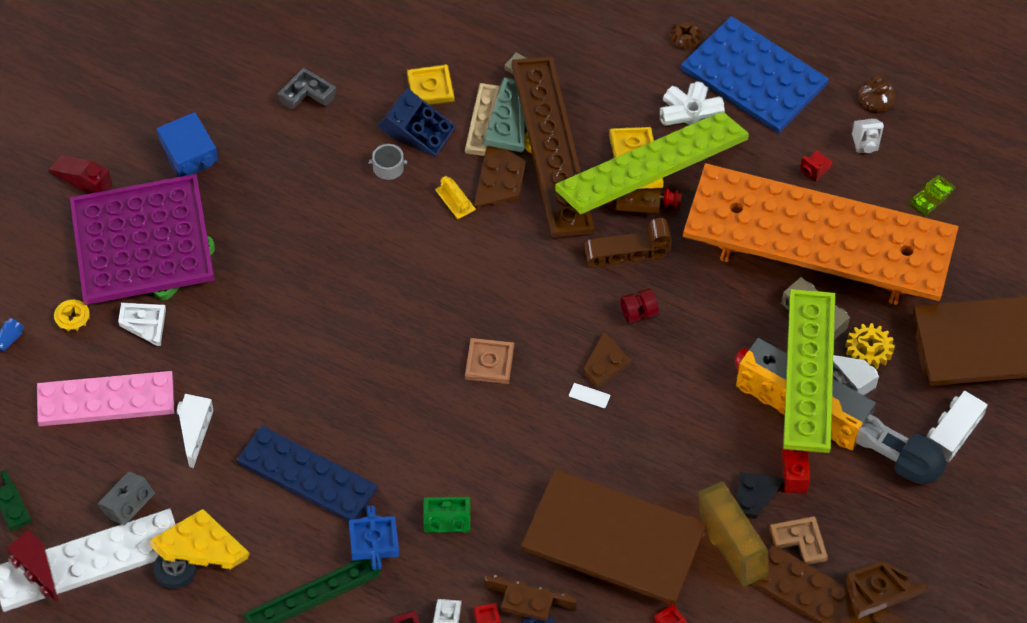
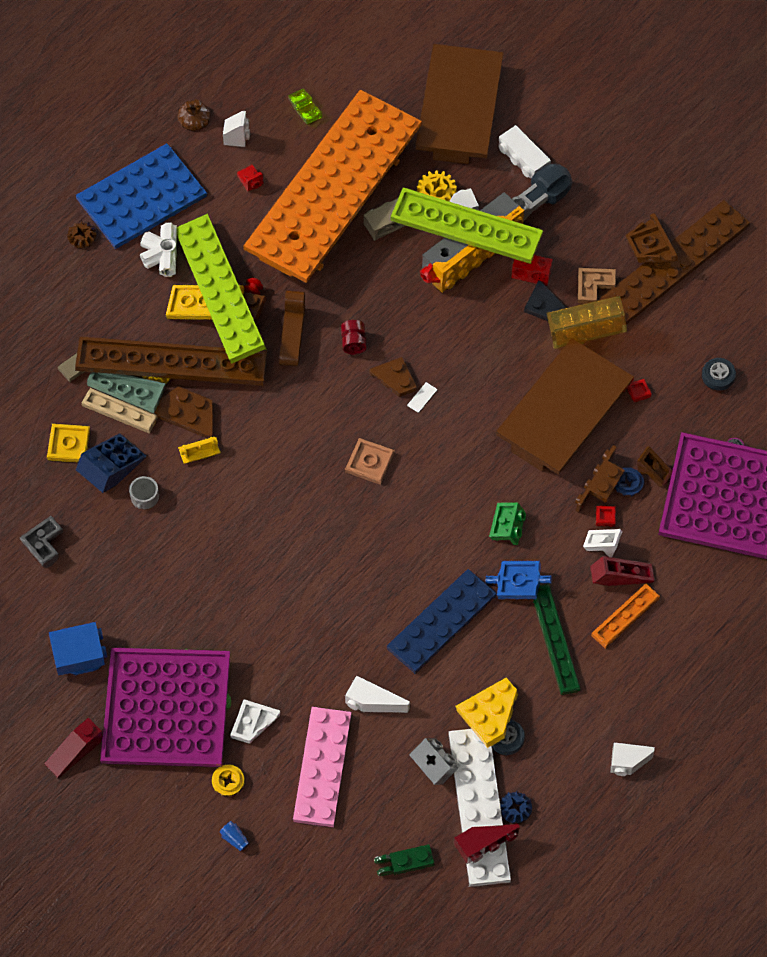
camera: 75 degrees left, 5 degrees up
(90, 606) = (513, 815): none -> dark blue gear

